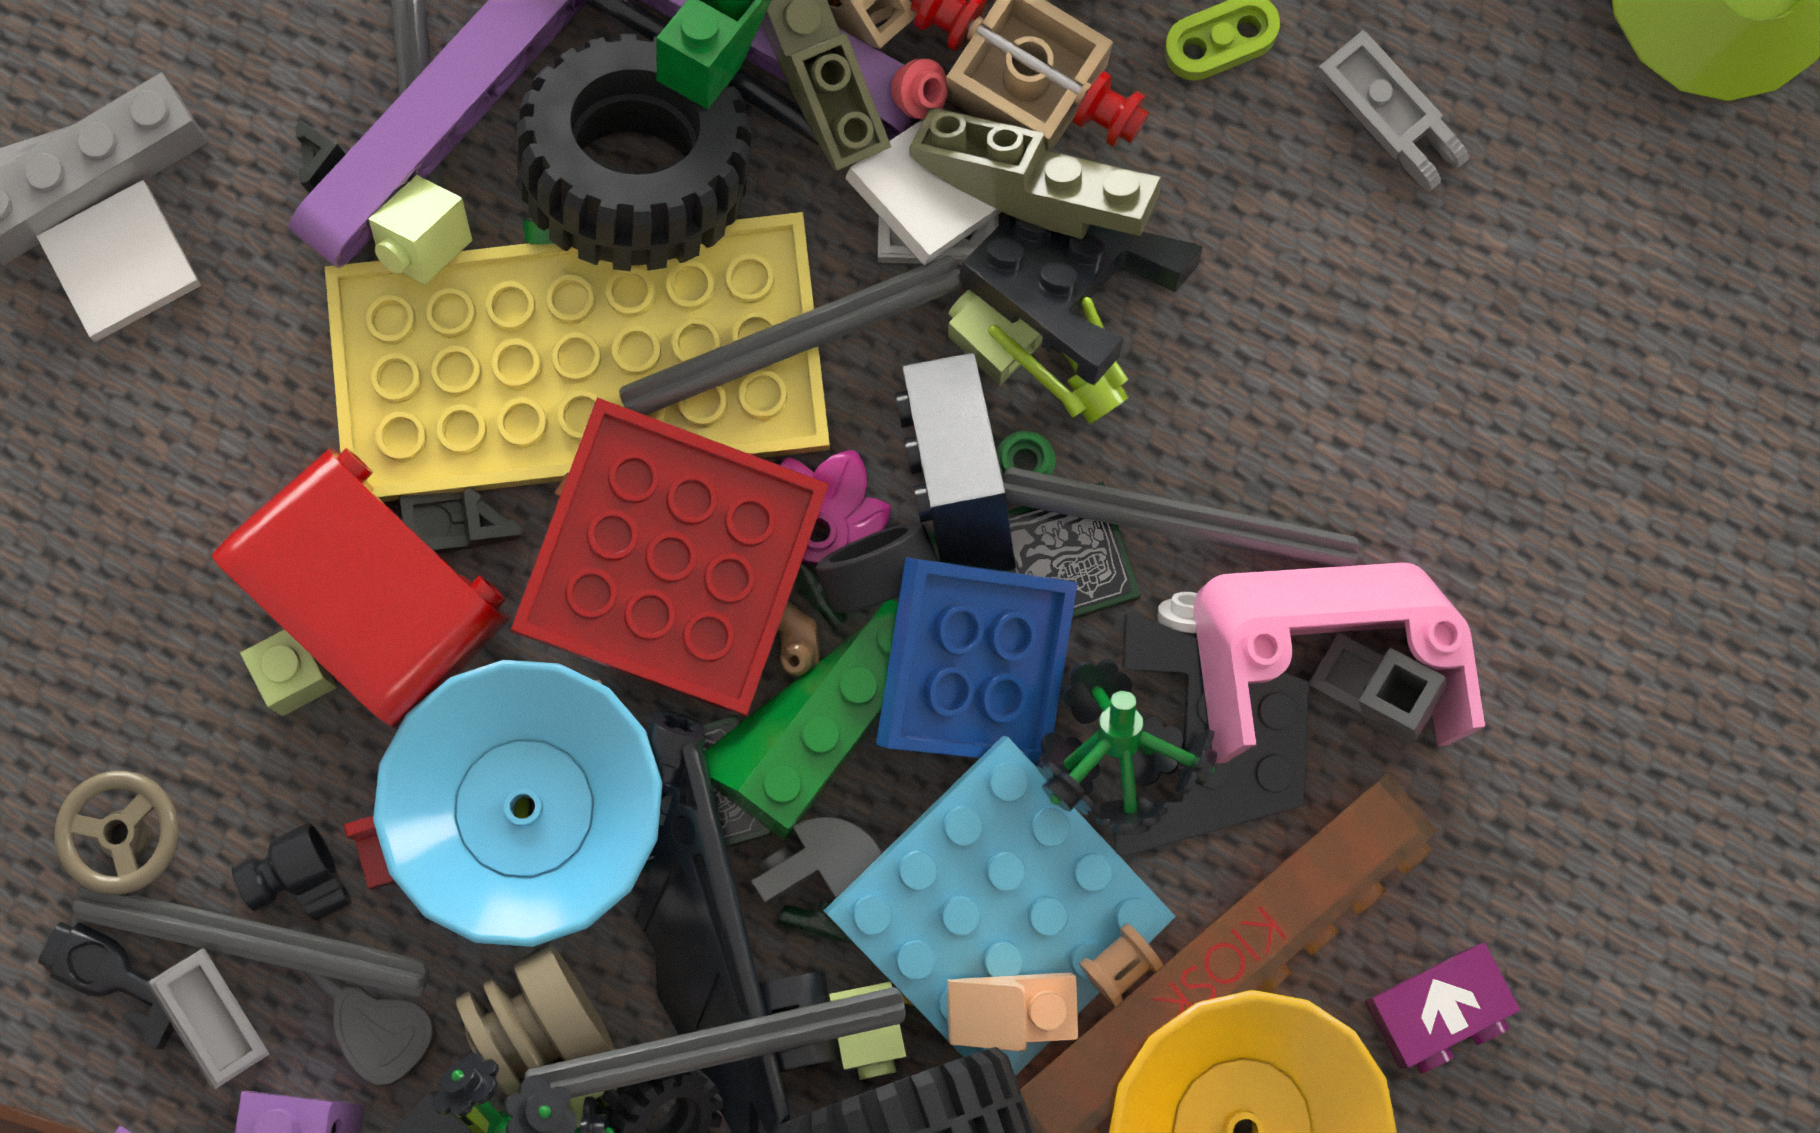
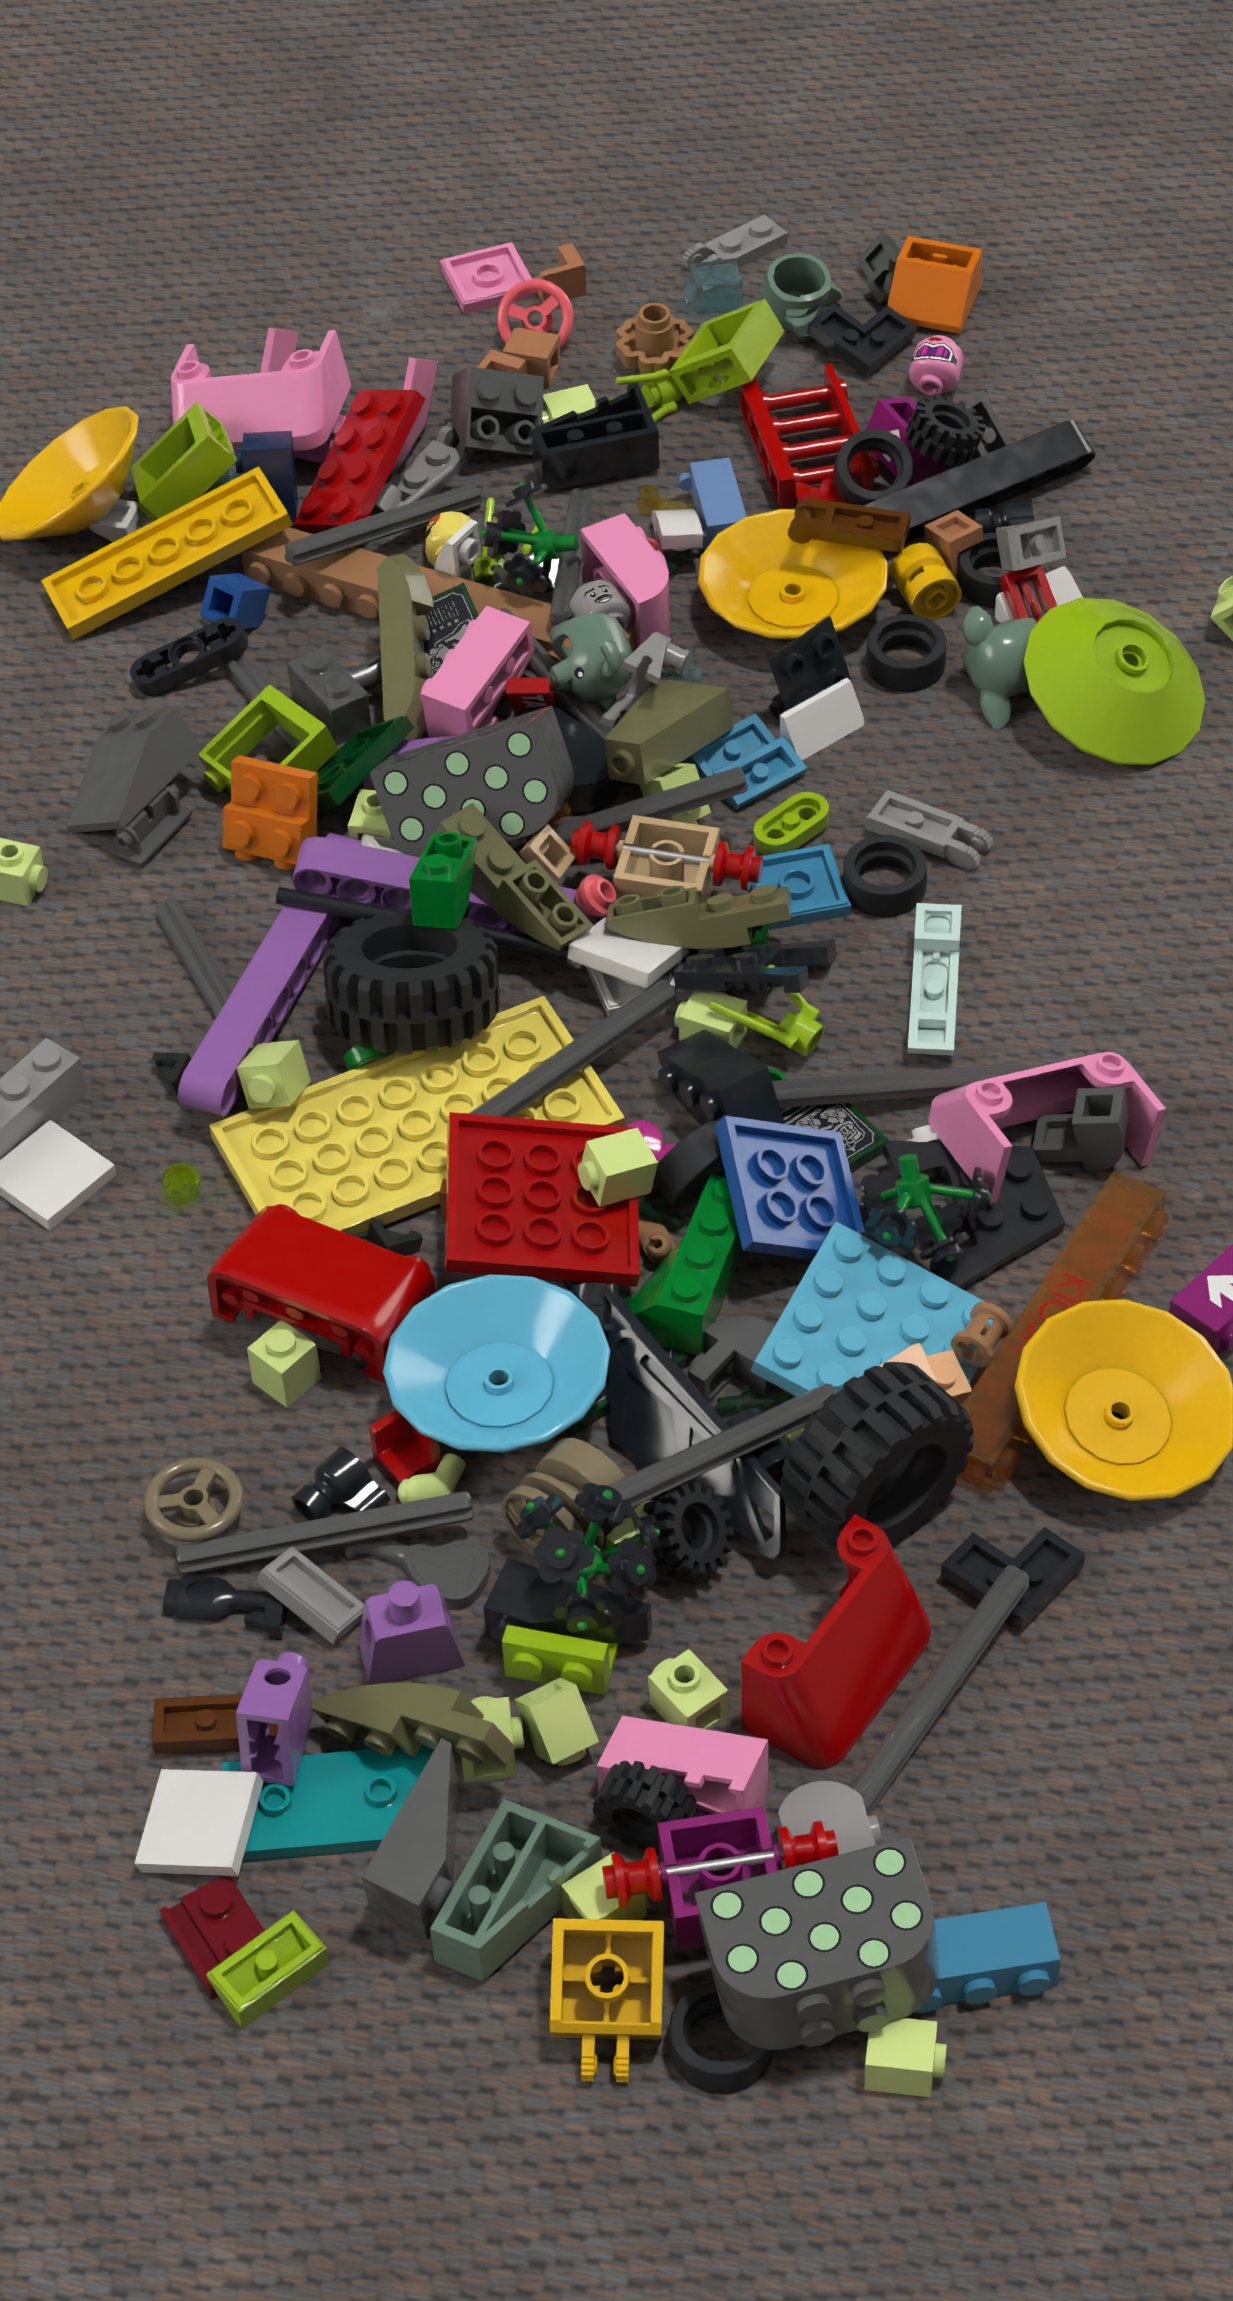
camera: 20 degrees left, 30 degrees down
(263, 327) = (178, 1177): none -> clear neon green hinge
(390, 911) = (433, 1484): none -> yellowish green arm
(770, 559) = (617, 1167): none -> yellowish green brick
(1195, 136) = (812, 883): none -> dark azure tile
(1297, 370) = (934, 979): none -> light aqua slope
(1319, 125) = (885, 900): none -> black tyre

